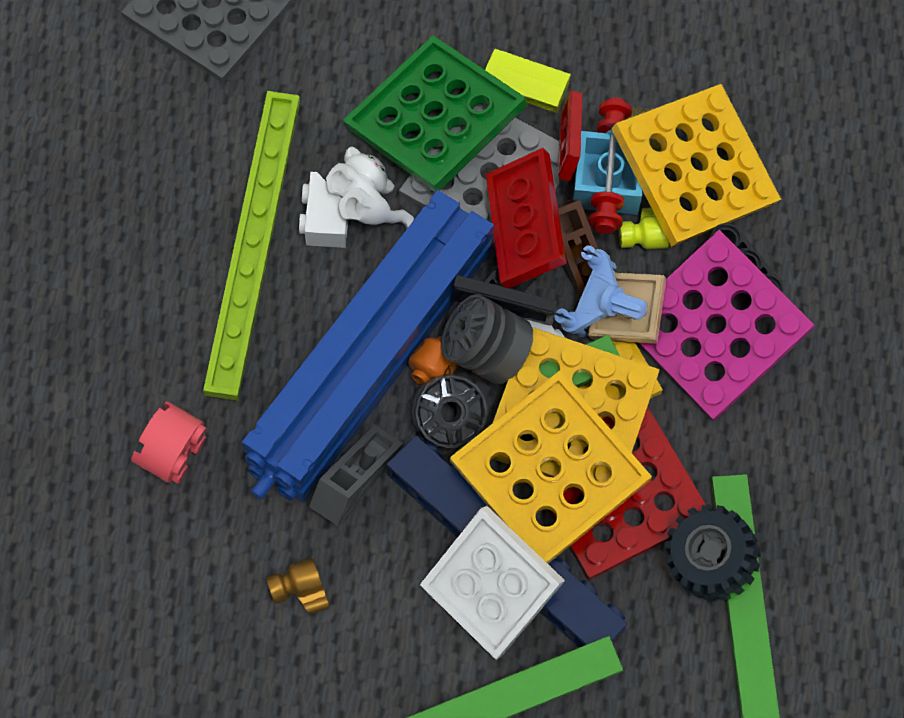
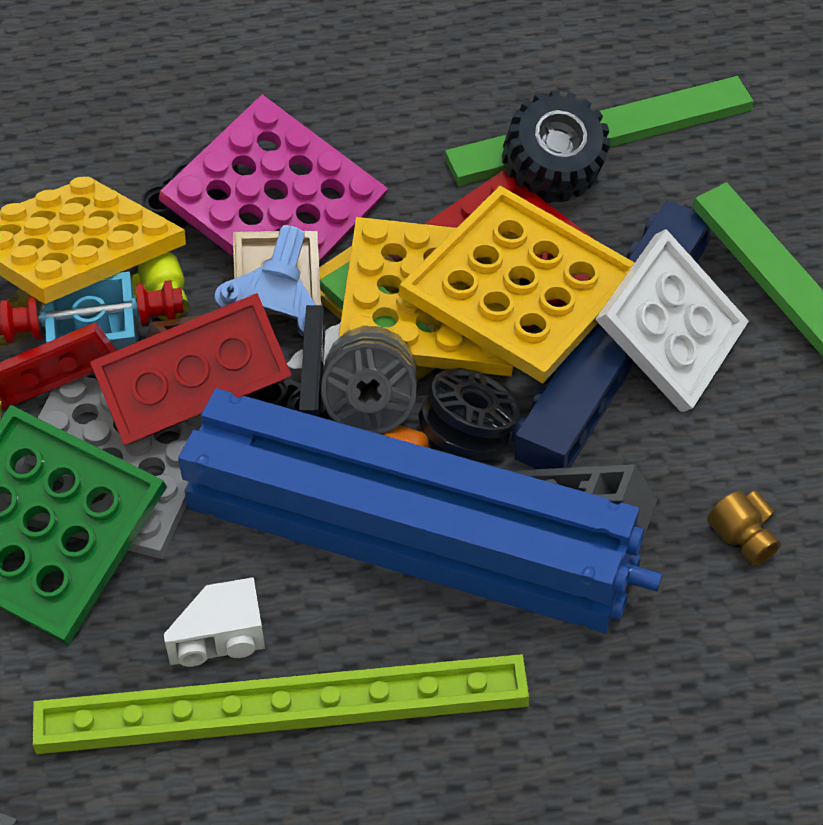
camera: 100 degrees left, 15 degrees down
(168, 443) = (625, 704): coral brick -> none
(361, 184) = (175, 580): white animal -> none

